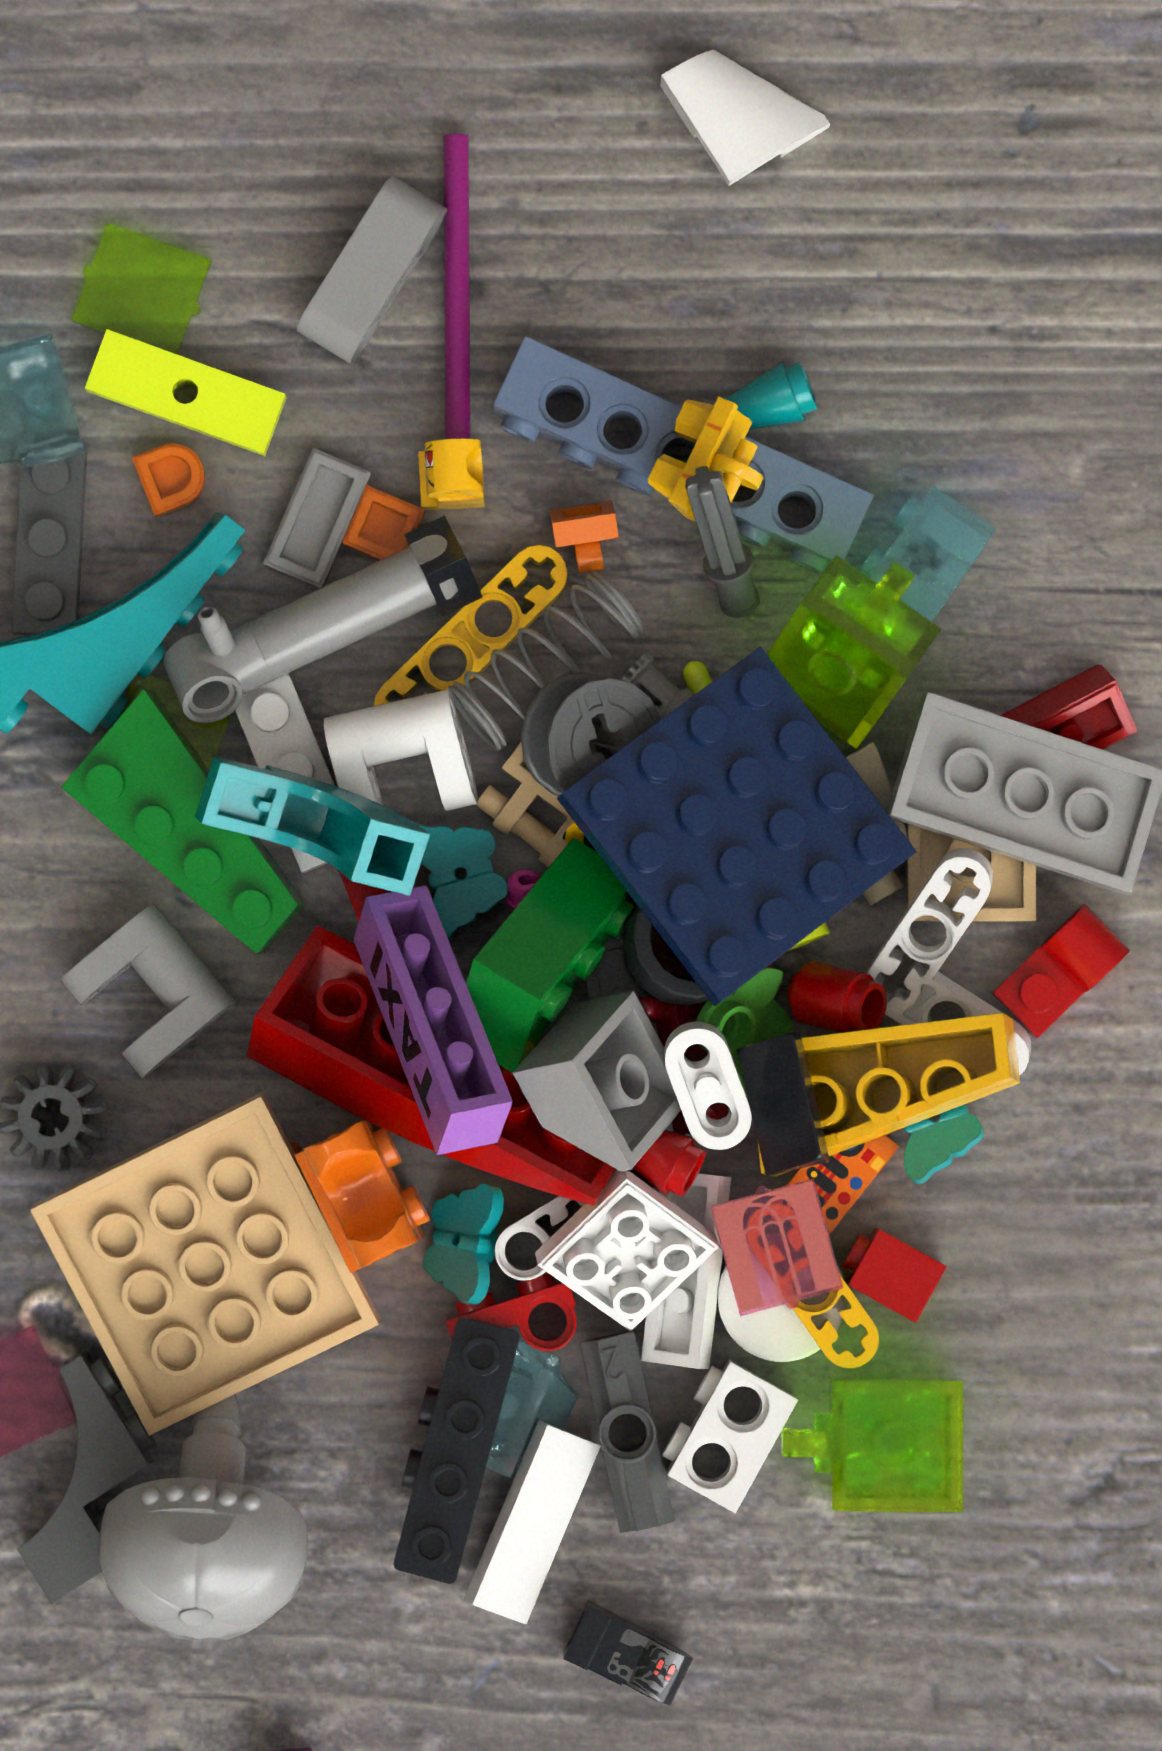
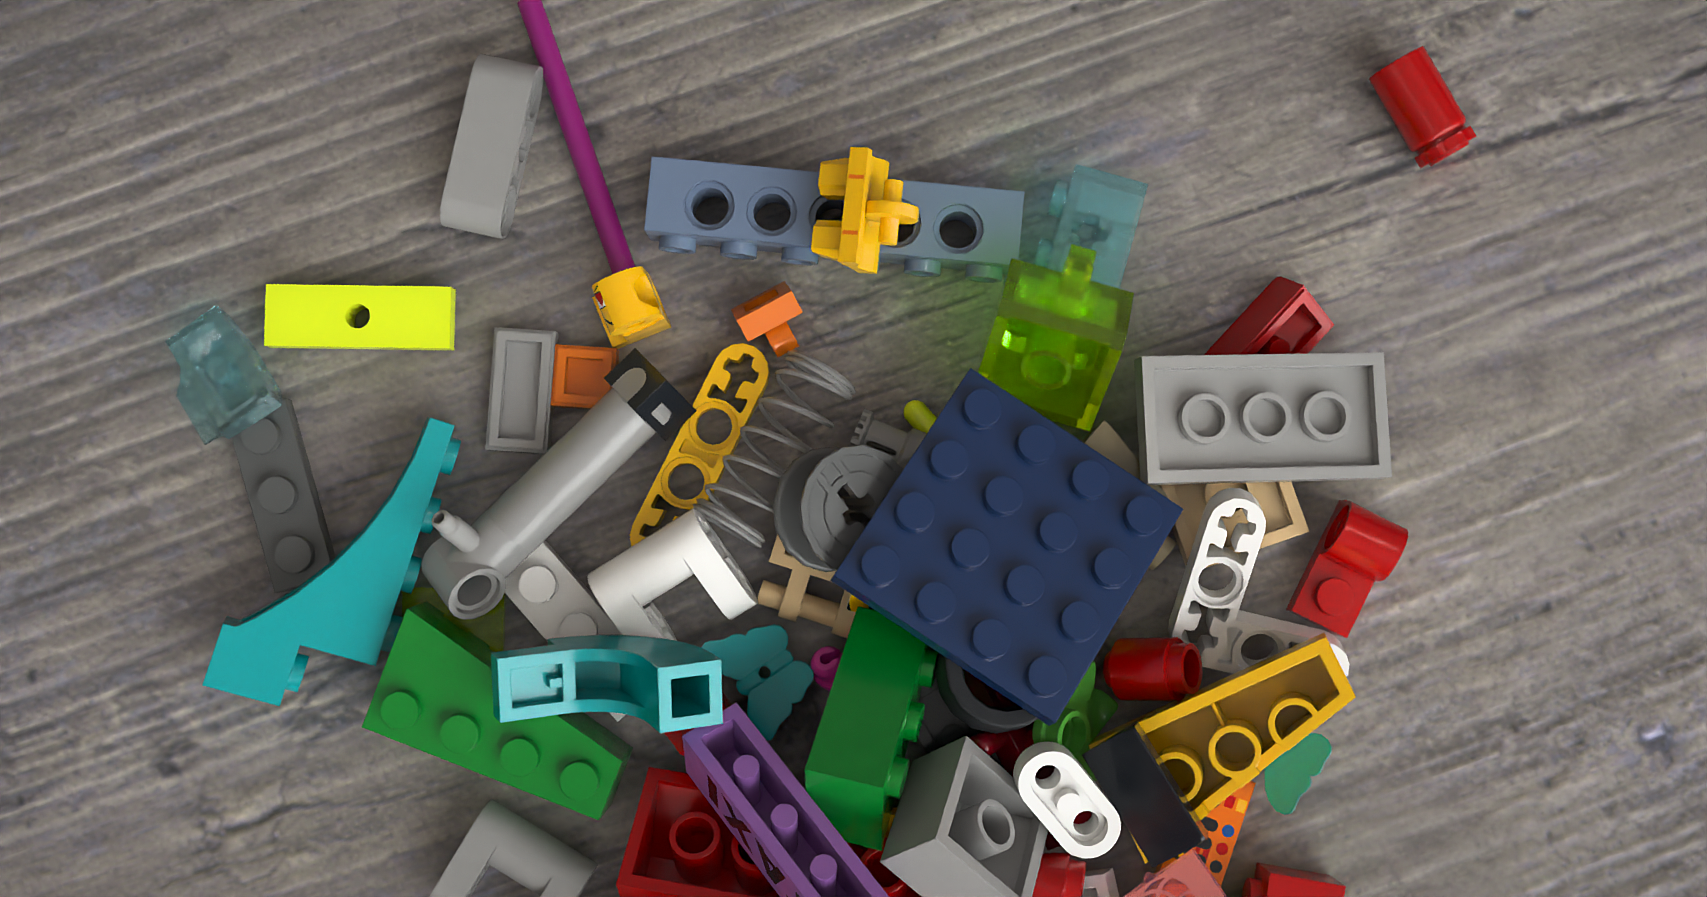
camera: 15 degrees left, 0 degrees up
(141, 289) = (290, 237): clear neon green piece -> none
(170, 477) = (374, 400): orange tile -> none
(727, 558) = (909, 297): dark grey axle -> none
(776, 397) = (903, 133): teal cone -> none

